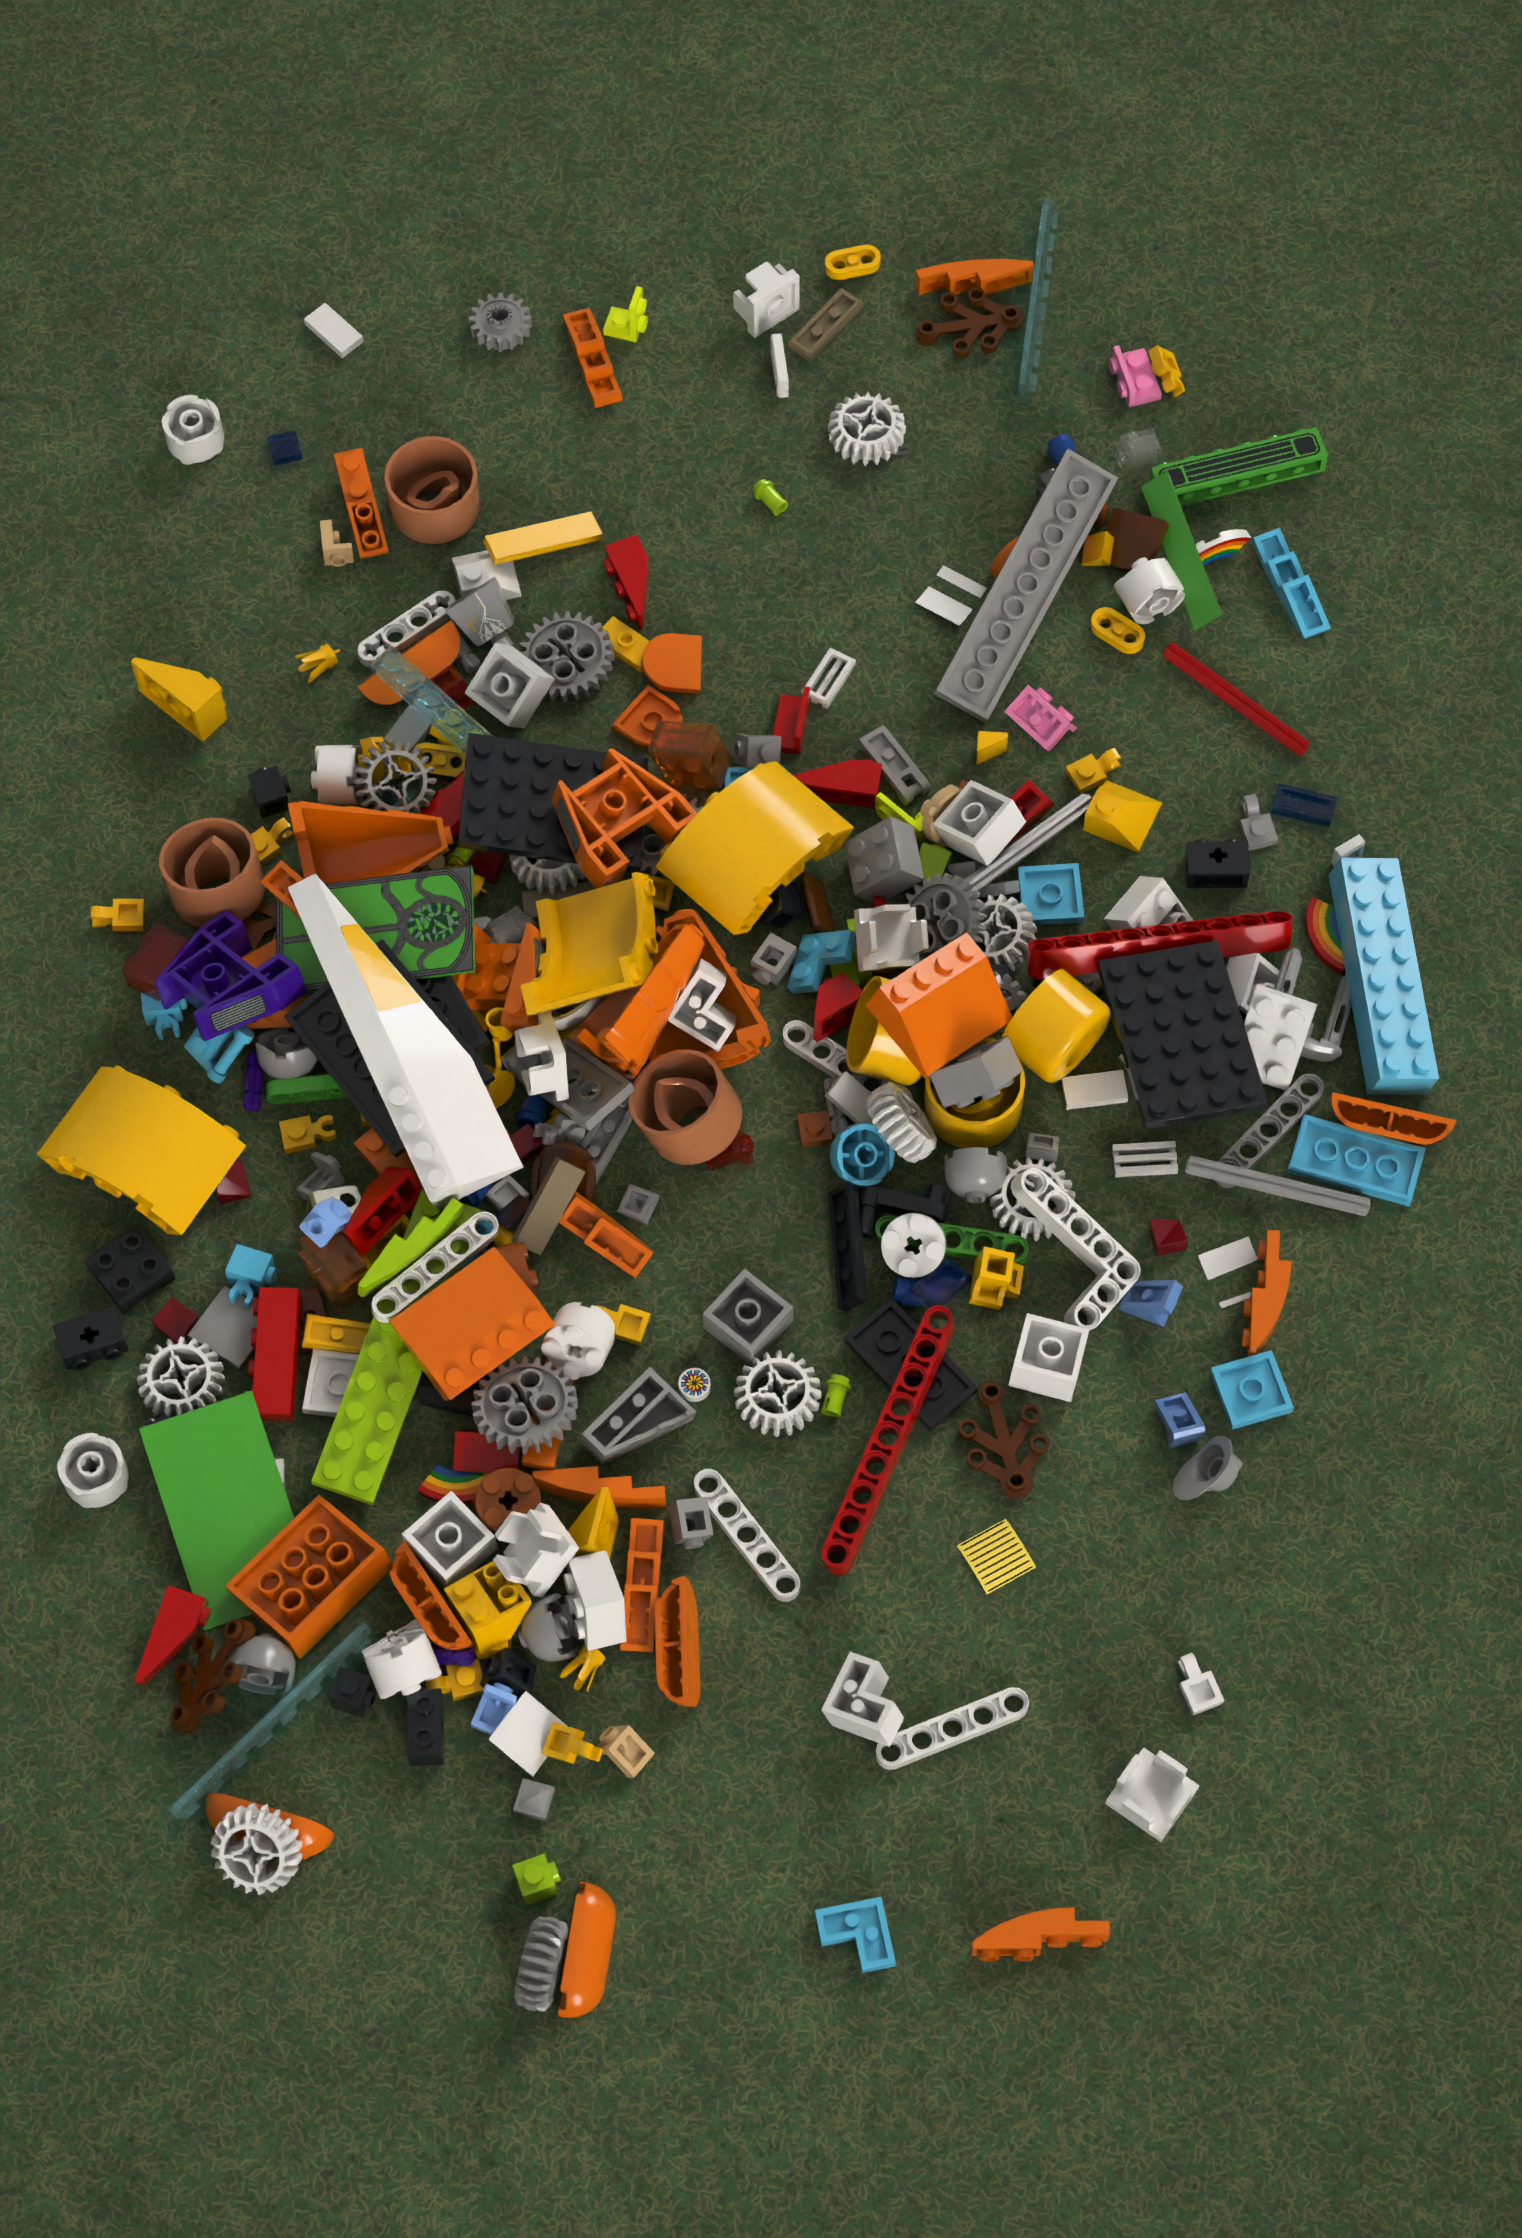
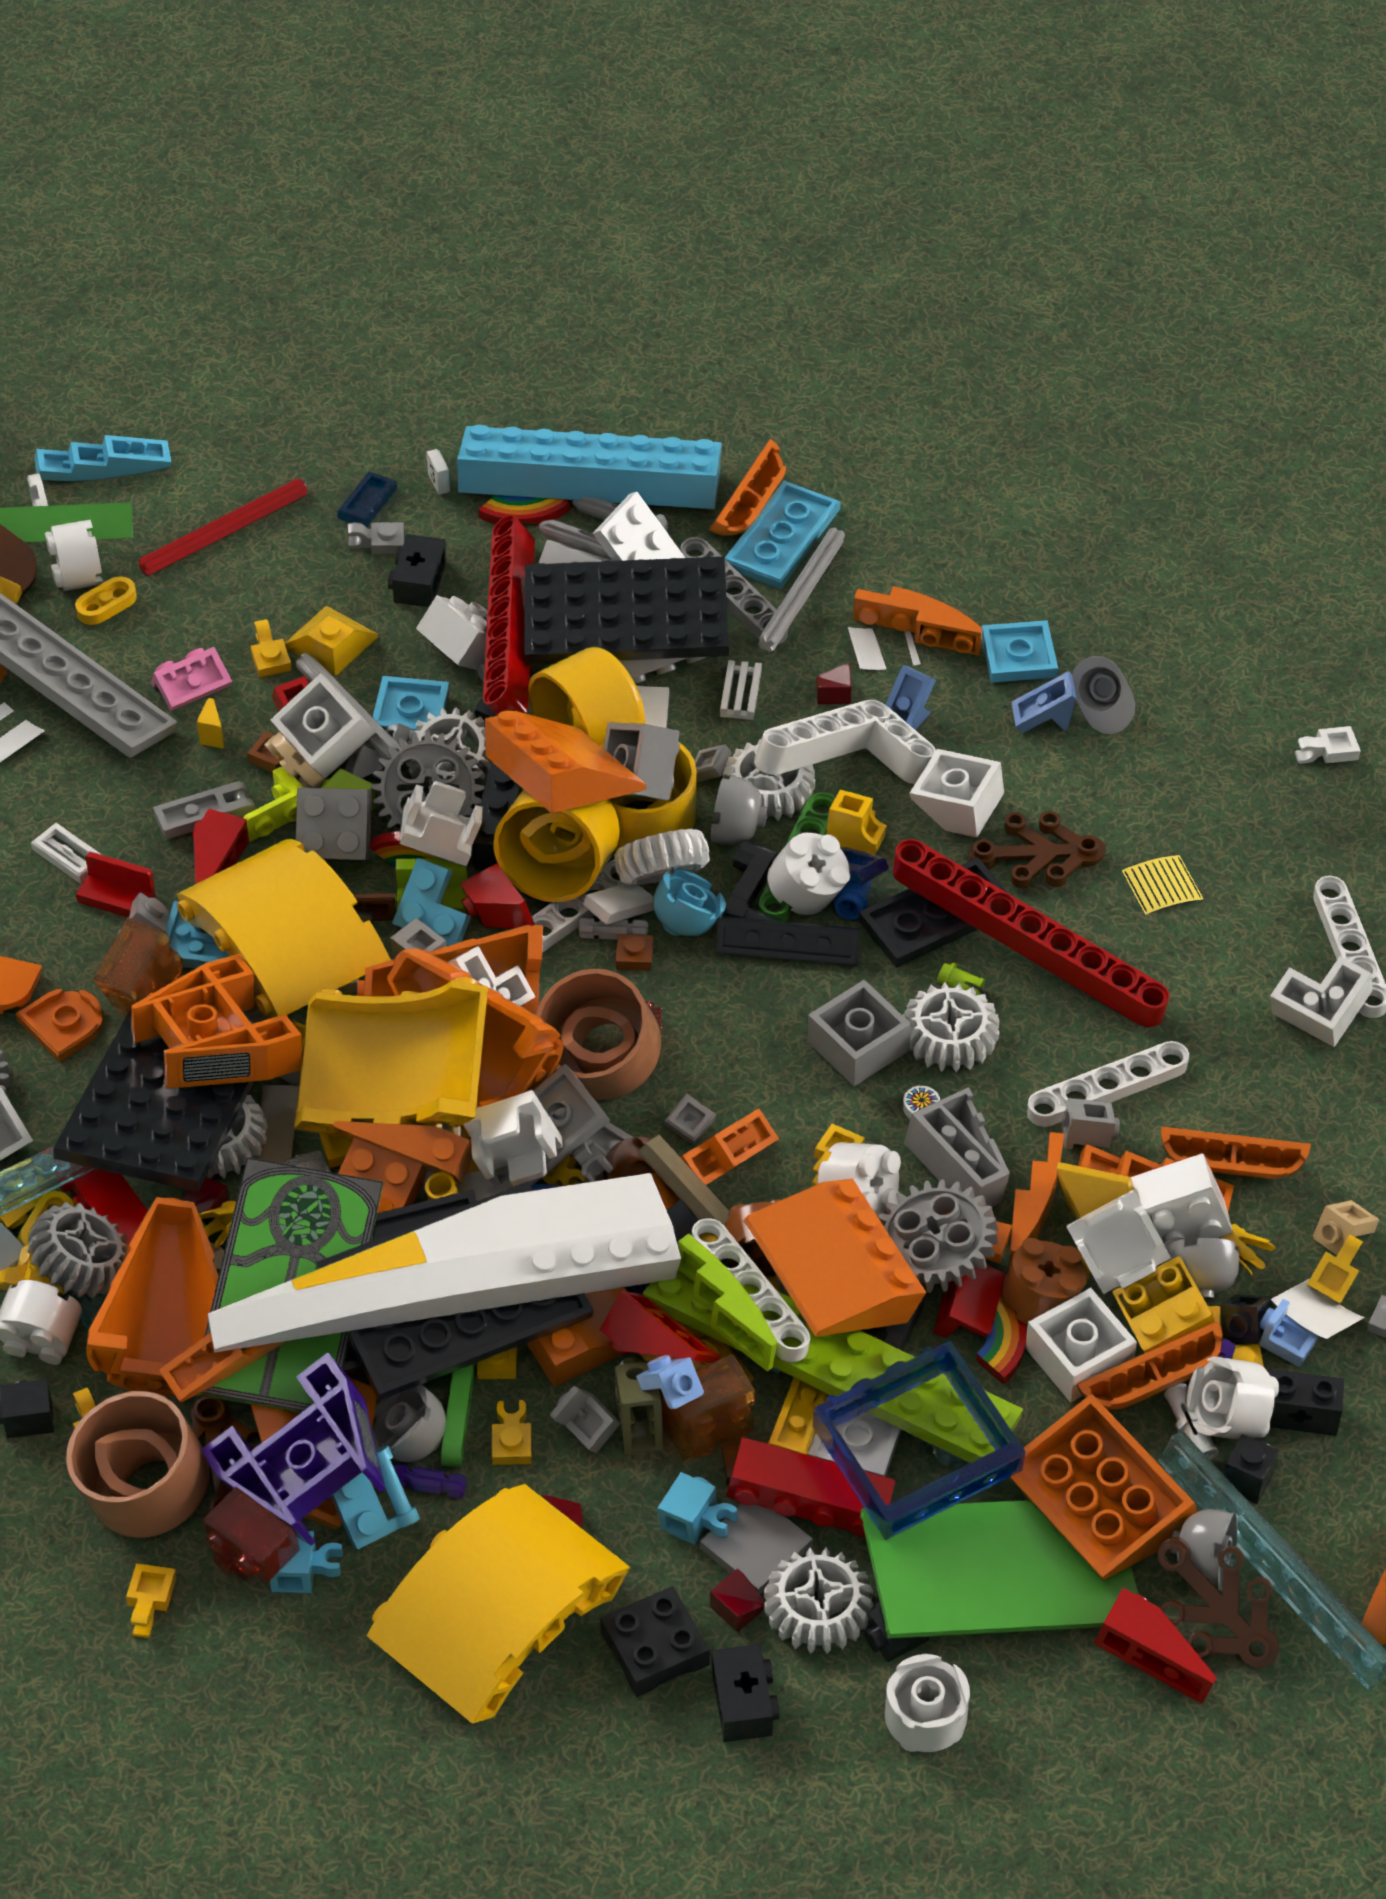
camera: 80 degrees left, 15 degrees down
(271, 1374) = (948, 1490): none -> clear blue window

